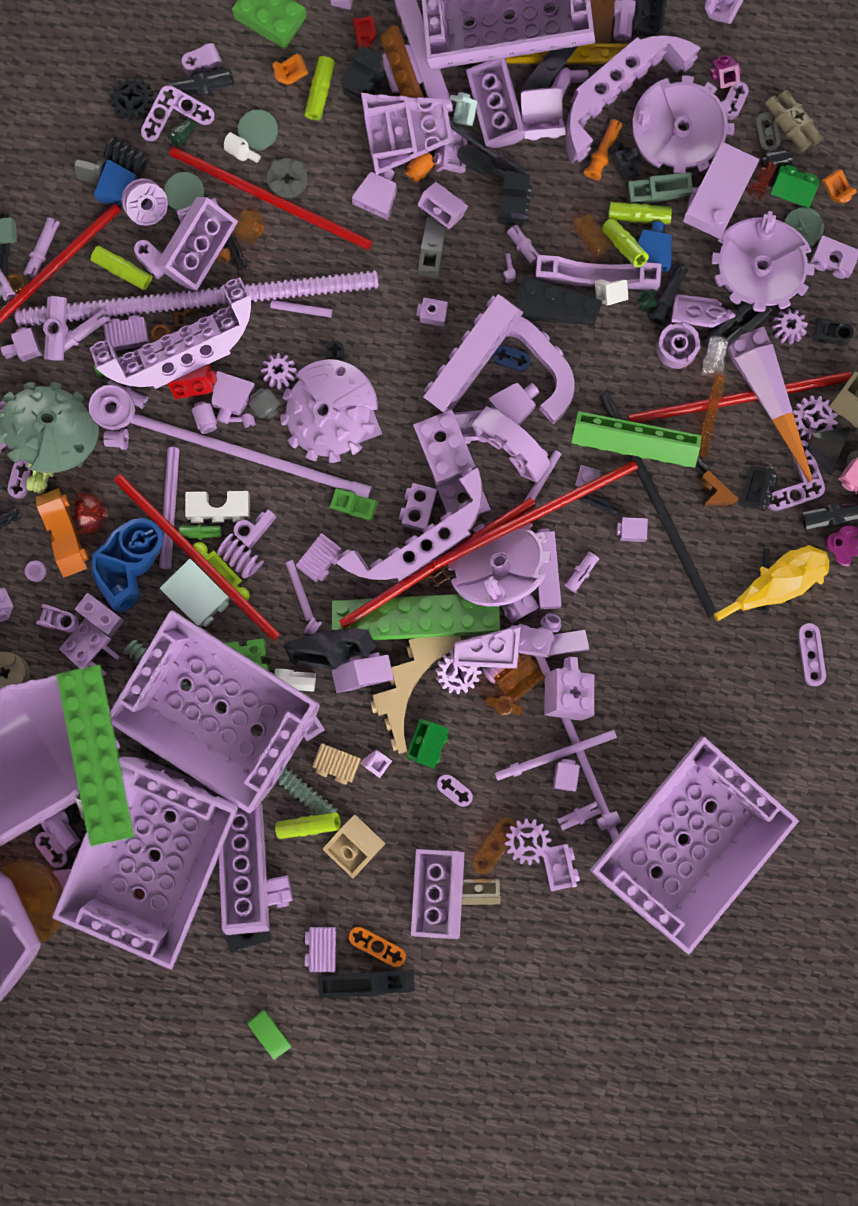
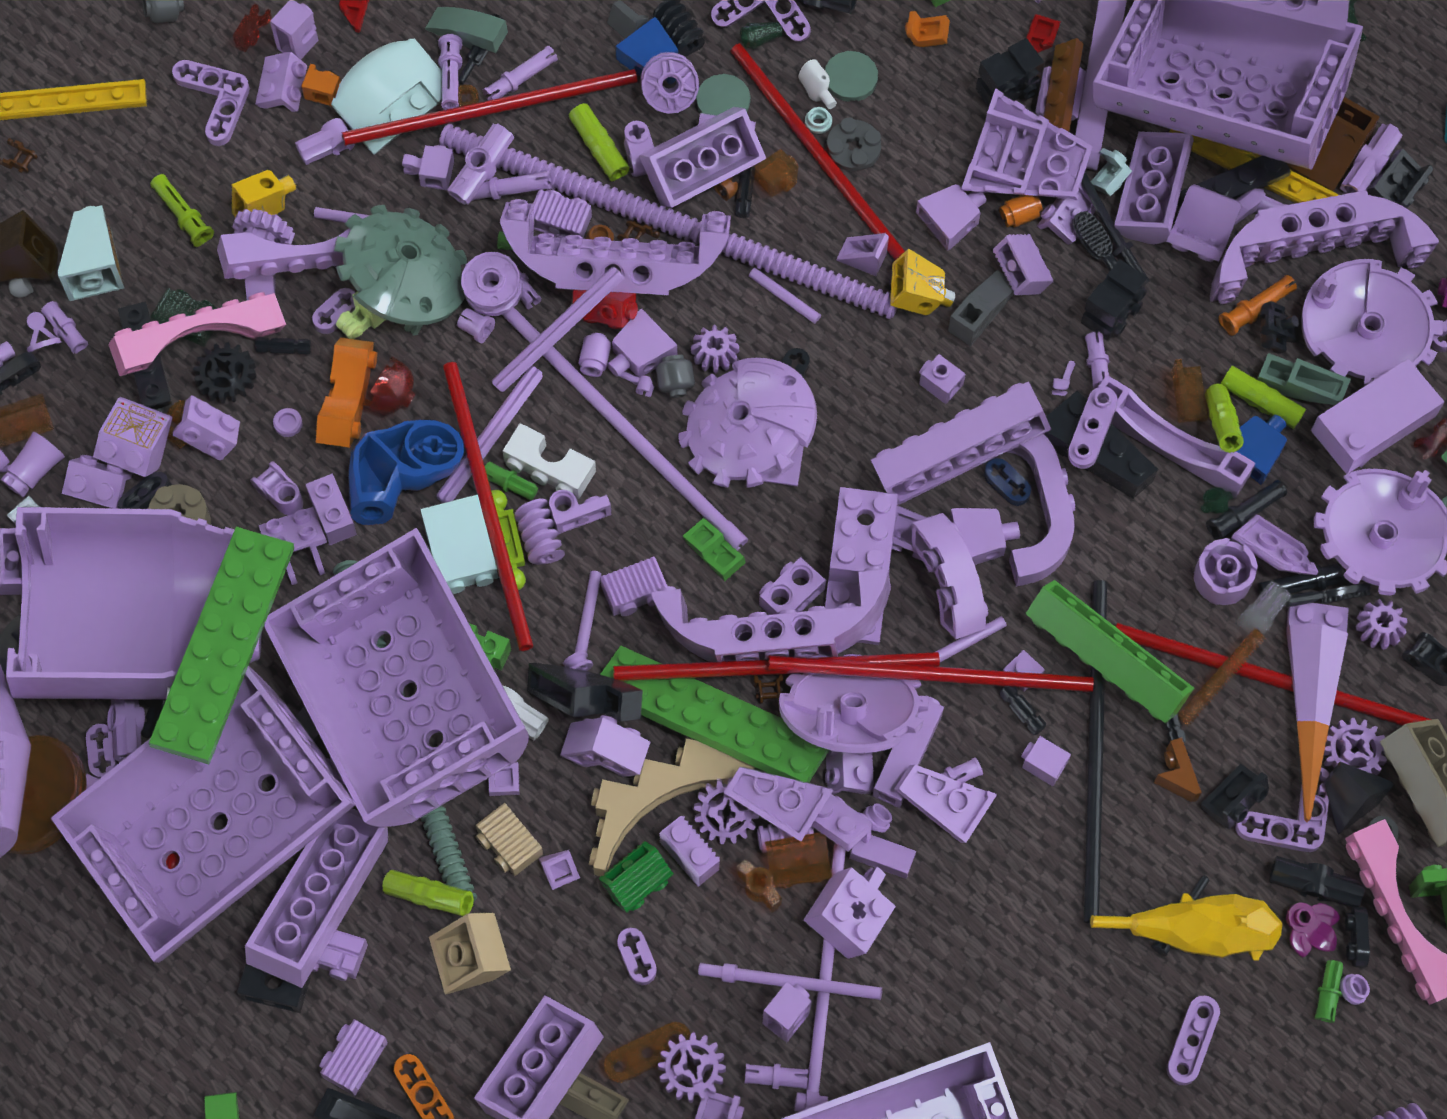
camera: 25 degrees right, 15 degrees down
(173, 415) = (557, 329): none -> lavender axle
(251, 168) = (818, 113): none -> light aqua plate
(319, 88) = (951, 66): lime axle -> none
(335, 251) = (865, 252): none -> lavender slope
(384, 256) = (918, 285): none -> yellow torso
(449, 708) = (689, 850): none -> lavender brick
(548, 305) = (1092, 438): none -> lavender plate
(587, 590) = (947, 802): none -> lavender wing
(611, 292) = (1176, 465): white panel -> none

